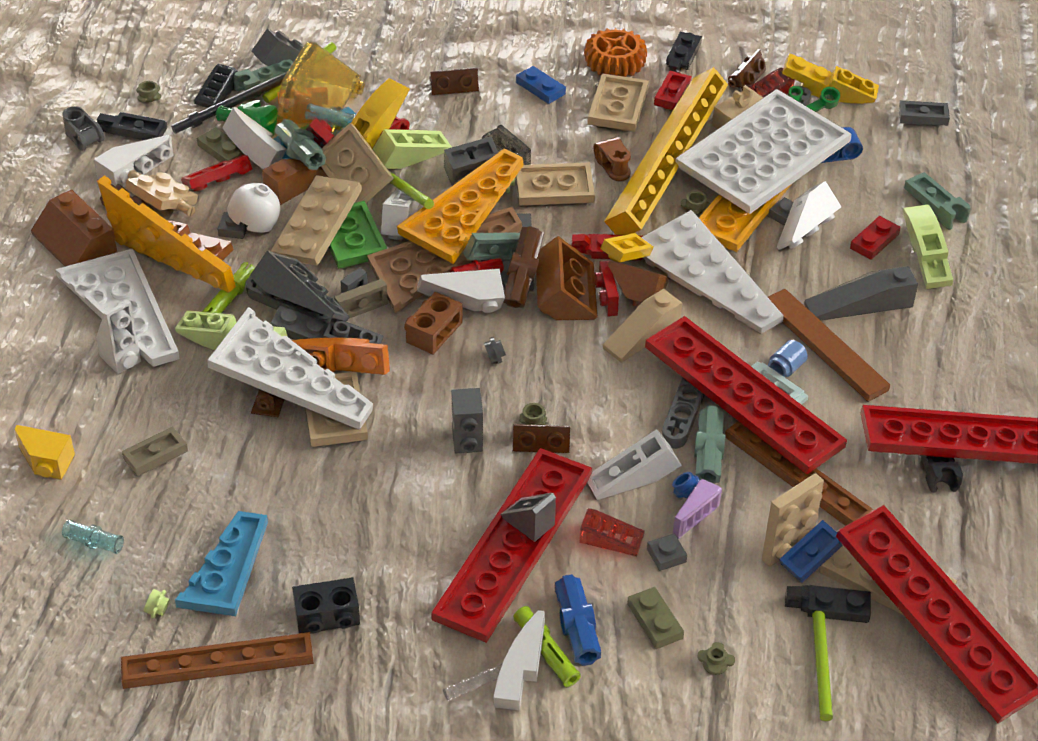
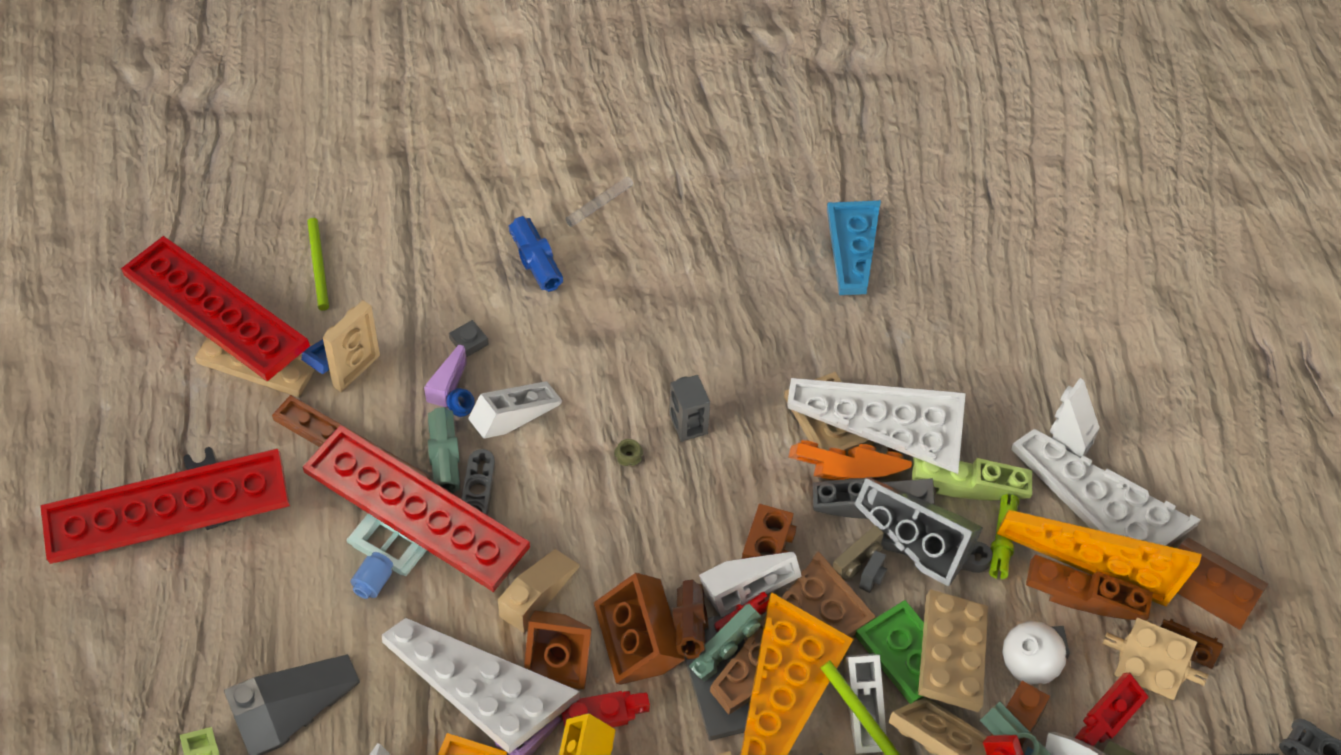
camera: 165 degrees right, 10 degrees up
(45, 451) = (1076, 312): yellow slope -> none
(93, 536) = (982, 246): clear light blue pin -> none
(136, 156) = (1225, 701): white slope -> none
(154, 451) = (975, 336): dark tan plate -> none
(156, 603) = (895, 201): yellowish green plate -> none
(216, 660) = (823, 173): dark orange tile -> none
(326, 605) = (753, 222): black brick -> none
(495, 350) = (691, 520): dark grey plate -> none
(504, 554) = (609, 318): red plate -> none
(520, 664) = (572, 194): white slope -> none
(532, 515) = (598, 319): dark grey slope -> none
(548, 437) = (603, 429): reddish brown hinge -> none
(551, 651) = (565, 235): lime pin -> none
(604, 522) = (533, 351): clear red slope -> none
(608, 294) = (598, 642): red plate -> none
(626, 247) = (575, 659): yellow plate -> none
(655, 617) = (469, 276): olive plate -> none
(713, 665) = (410, 248): olive plate -> none
(829, 347) = (332, 619): dark orange tile -> none
(834, 602) = (312, 318): black hinge -> none

